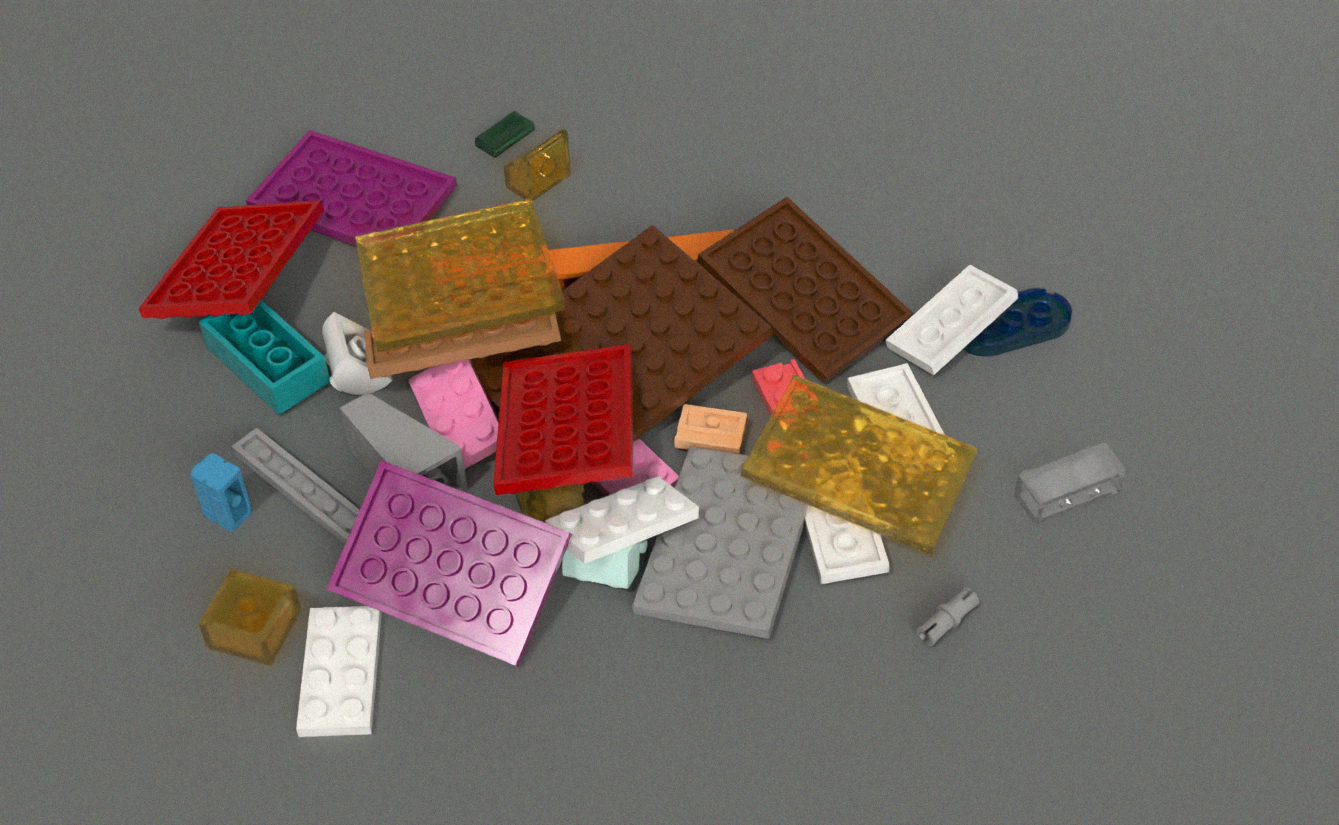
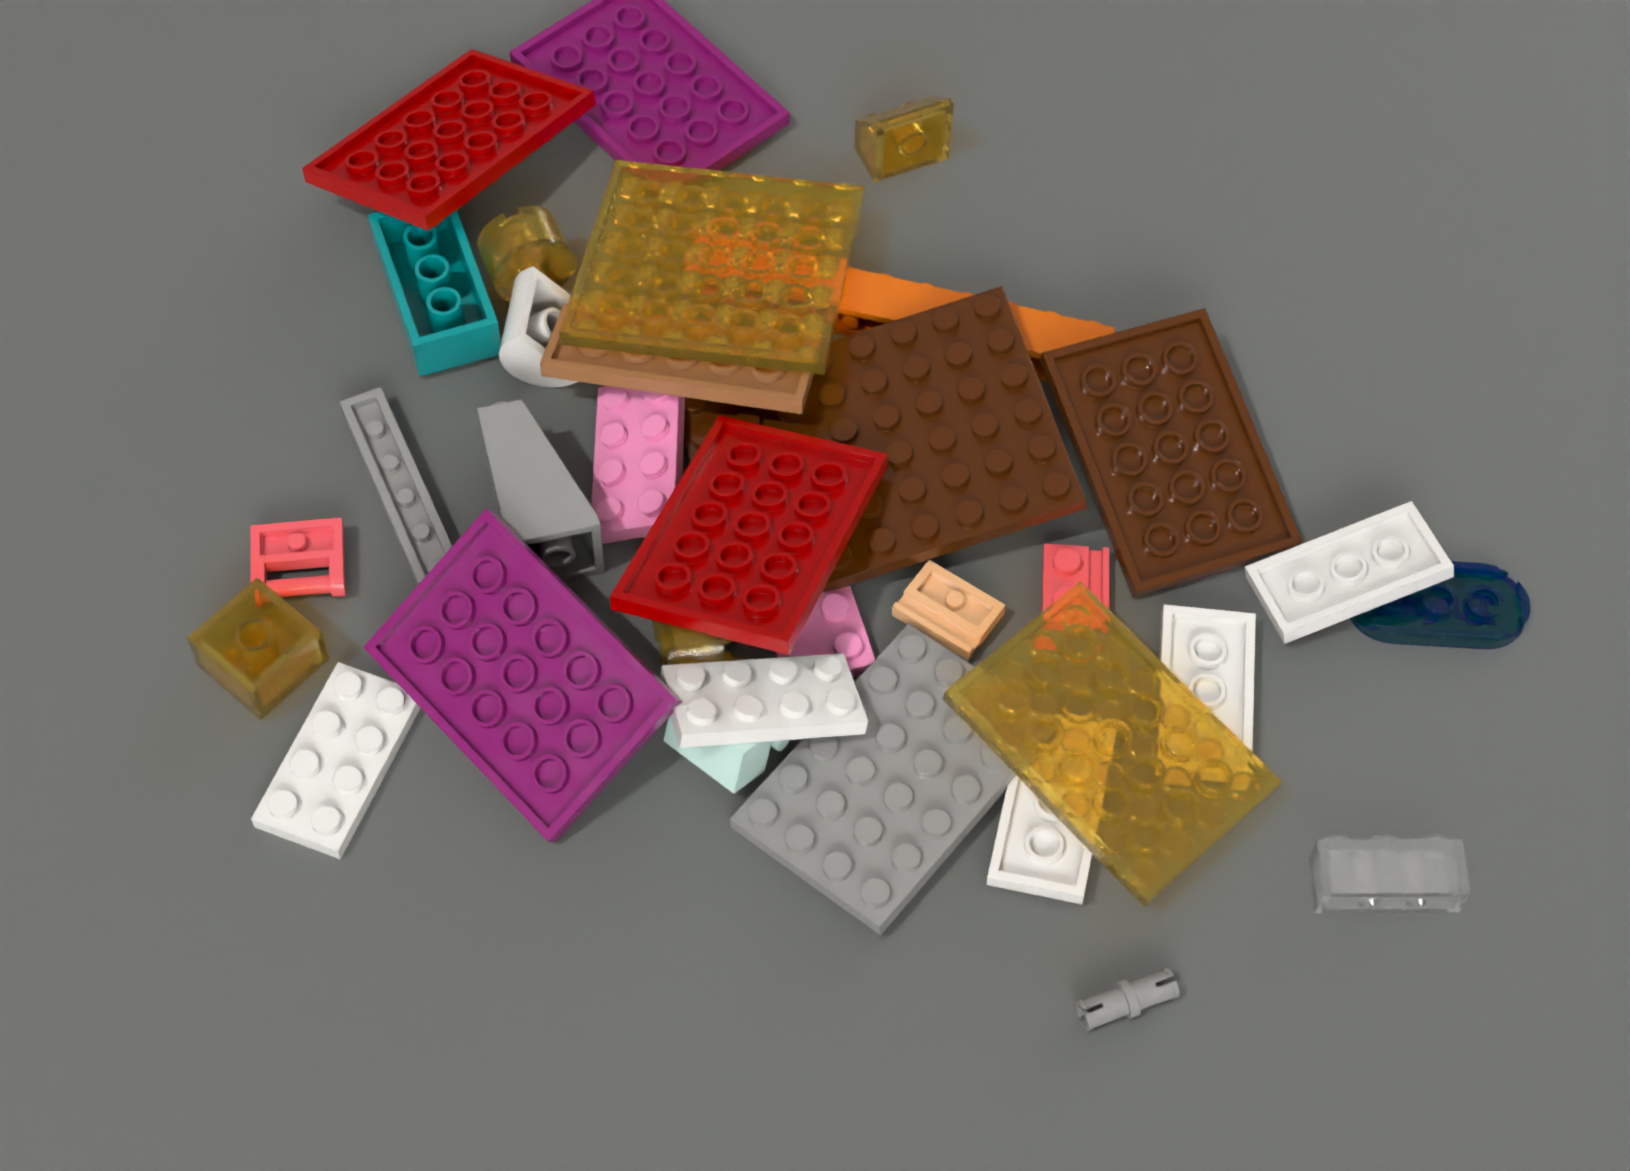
camera: 20 degrees right, 10 degrees up
(221, 492) = (295, 464): dark azure brick -> none
(247, 546) = (300, 547): none -> coral plate
(312, 306) = (522, 242): none -> clear yellow brick
(504, 134) = (888, 66): clear green tile -> none

